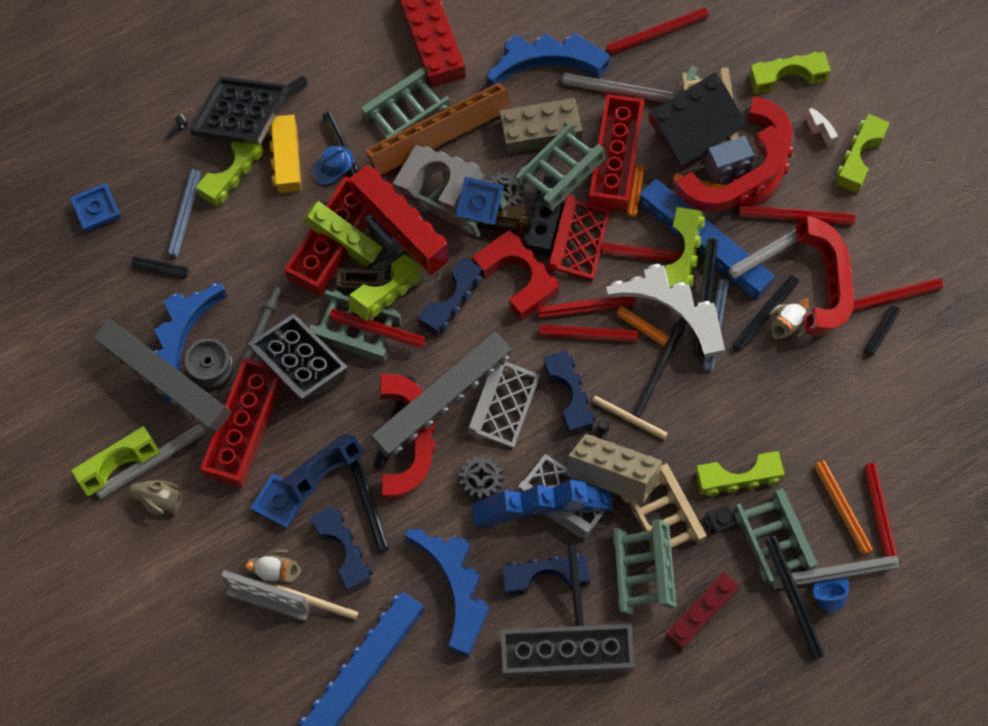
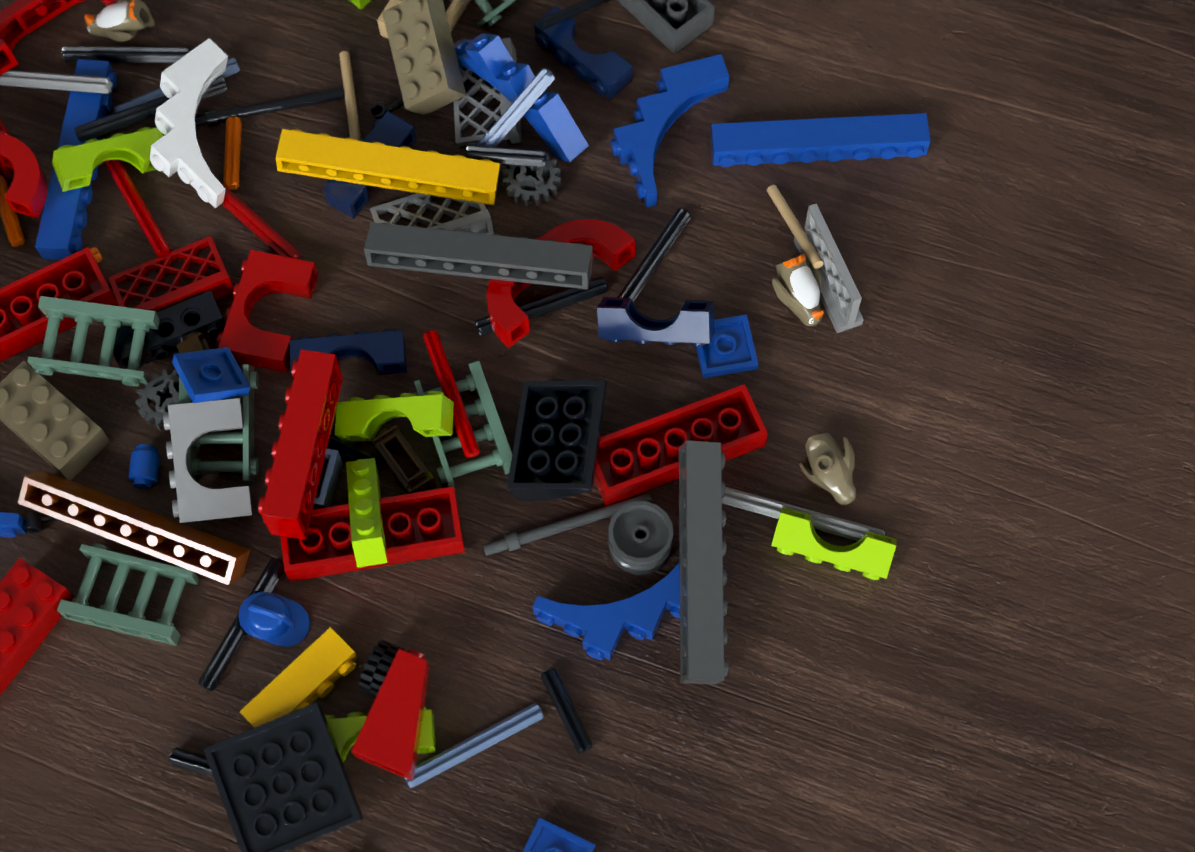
camera: 130 degrees left, 0 degrees up
(219, 174) = (395, 719): none -> red slope
(256, 191) = (377, 667): none -> black tyre
(330, 527) = (732, 220): dark blue arch -> none
(470, 153) = (144, 466): none -> blue brick
(501, 464) = (507, 155): none -> black axle
(520, 478) = (518, 108): none -> axle
(547, 391) = (387, 166): none -> yellow brick
(588, 333) = (283, 197): red axle -> none

